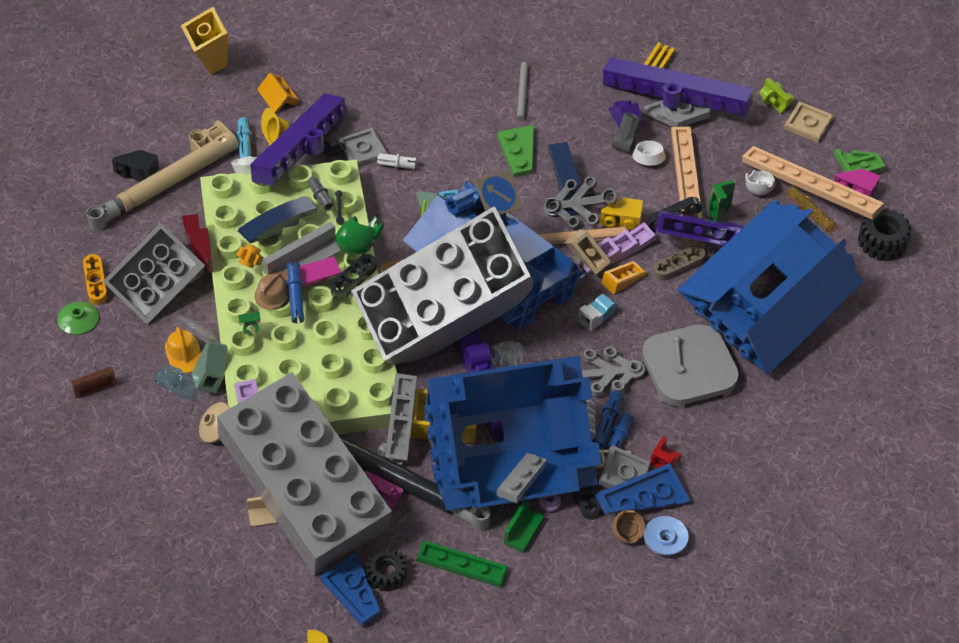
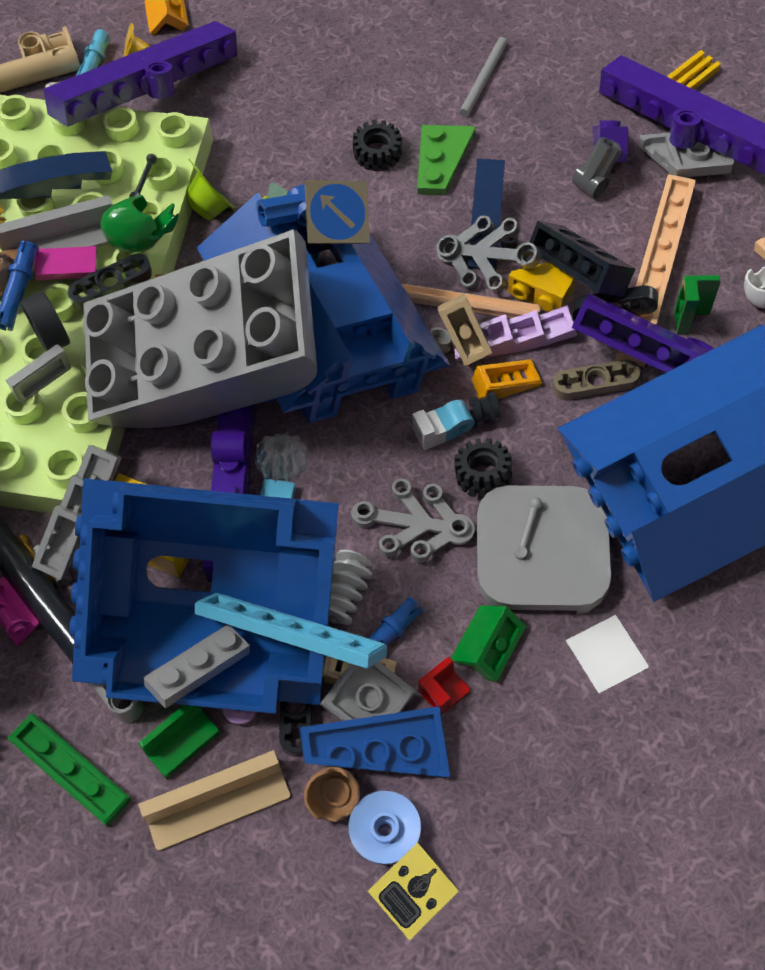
camera: 25 degrees right, 10 degrees up
(320, 194) = (126, 153): dark grey axle -> none
(331, 308) = (44, 321): none -> black tyre
(333, 150) = (192, 97): black arm -> none
(340, 341) = (38, 374): none -> light grey tile
(363, 147) = (235, 106): light grey tile -> none
(377, 207) = (205, 198): none -> lime piece
(396, 161) = (270, 134): white axle -> none
(474, 143) = (377, 133): none -> black tyre
(559, 552) = (215, 800): none -> tan panel
(567, 440) = (292, 630): none -> medium azure tile
(613, 401) = (407, 572): blue pin -> none
(620, 295) = (484, 408): none -> black wheel
(630, 322) = (483, 454): none -> black tyre
(644, 190) = (582, 259): none -> black brick
(649, 153) = (620, 205): white hat -> none
(680, 423) = (489, 641): none -> green panel
(696, 563) = (413, 891): none -> light yellow sticker
(750, 413) = (607, 654): none -> white sticker

